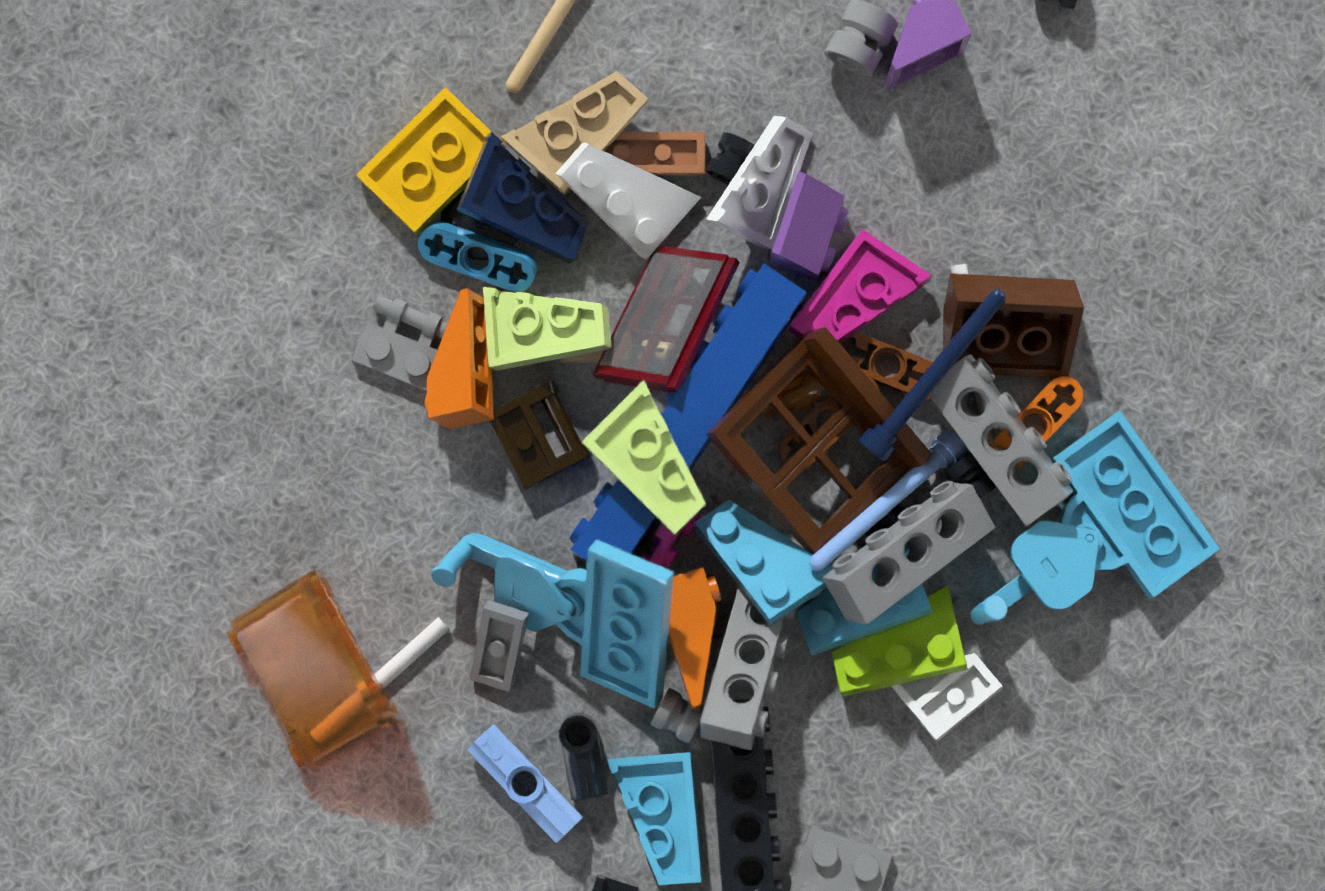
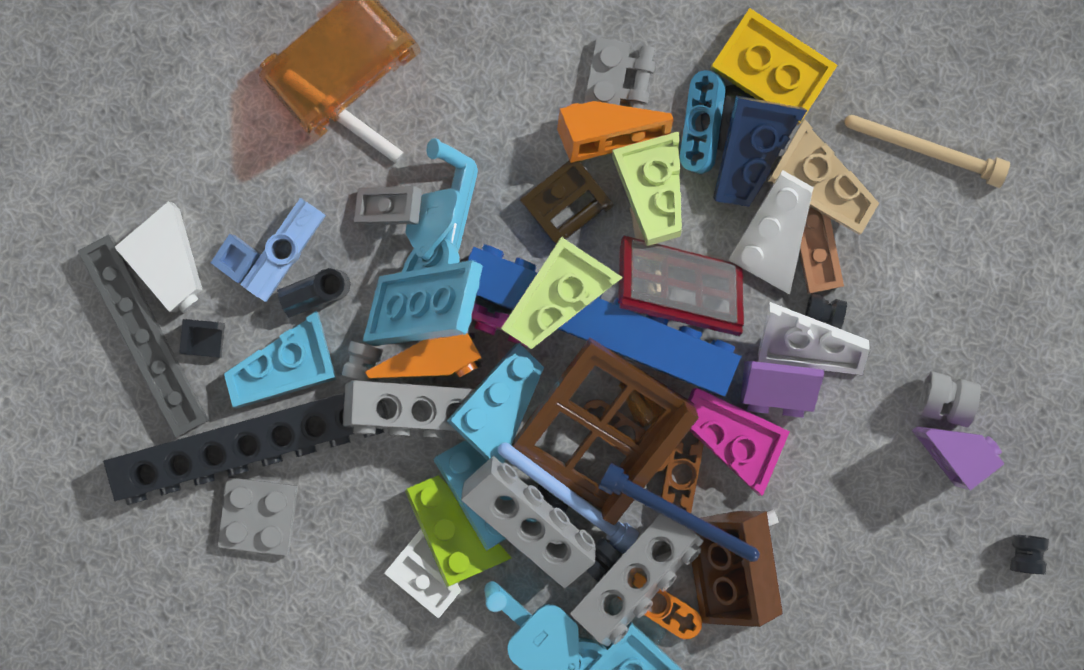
camera: 80 degrees right, 5 degrees up
(523, 843) = (235, 258): none -> medium blue plate

